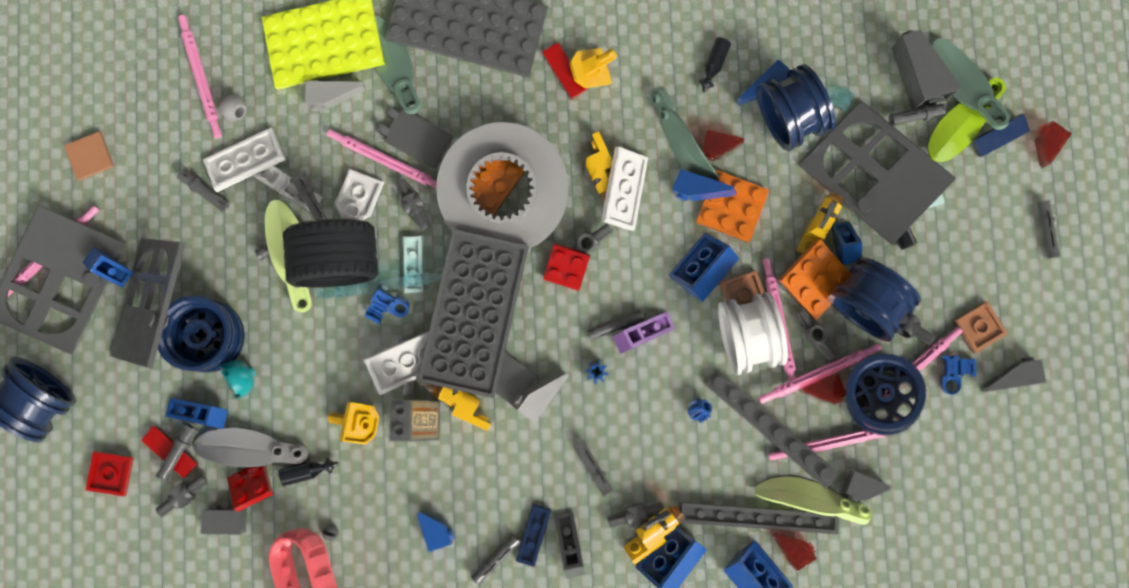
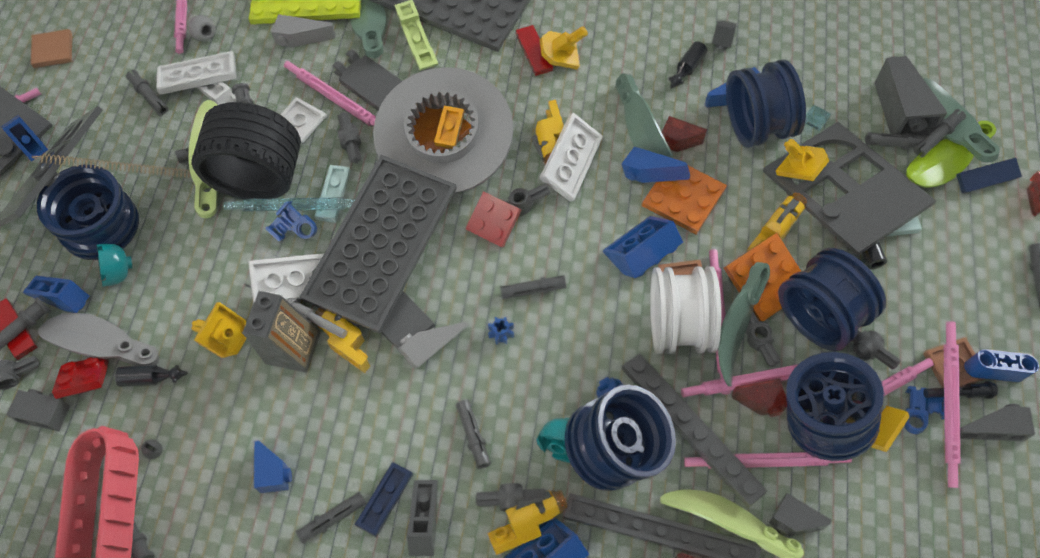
camera: 10 degrees right, 20 degrees down
(214, 293) = (112, 165): none -> tan piece
(427, 393) = (314, 318): none -> light grey pin
(447, 78) = (415, 35): none -> yellowish green slope
(509, 188) = (449, 127): none -> light orange plate
(643, 332) = (561, 298): medium lavender slope -> none
(668, 460) = (553, 438): none -> teal cylinder
(703, 460) = (620, 438): none -> dark blue wheel
(746, 23) = (724, 34): none -> dark grey slope
(798, 326) = (738, 318): none -> sand green plant
(836, 159) = (802, 161): none -> yellow piece
(846, 242) = (804, 247): blue slope -> none
(933, 392) = (890, 426): none -> yellow tile
(955, 102) = (946, 127): none -> dark grey pin
(979, 368) = (952, 404): none -> bright pink axle
(1006, 346) = (986, 389): none -> black pin
(1029, 323) = (1001, 365): none -> blue beam

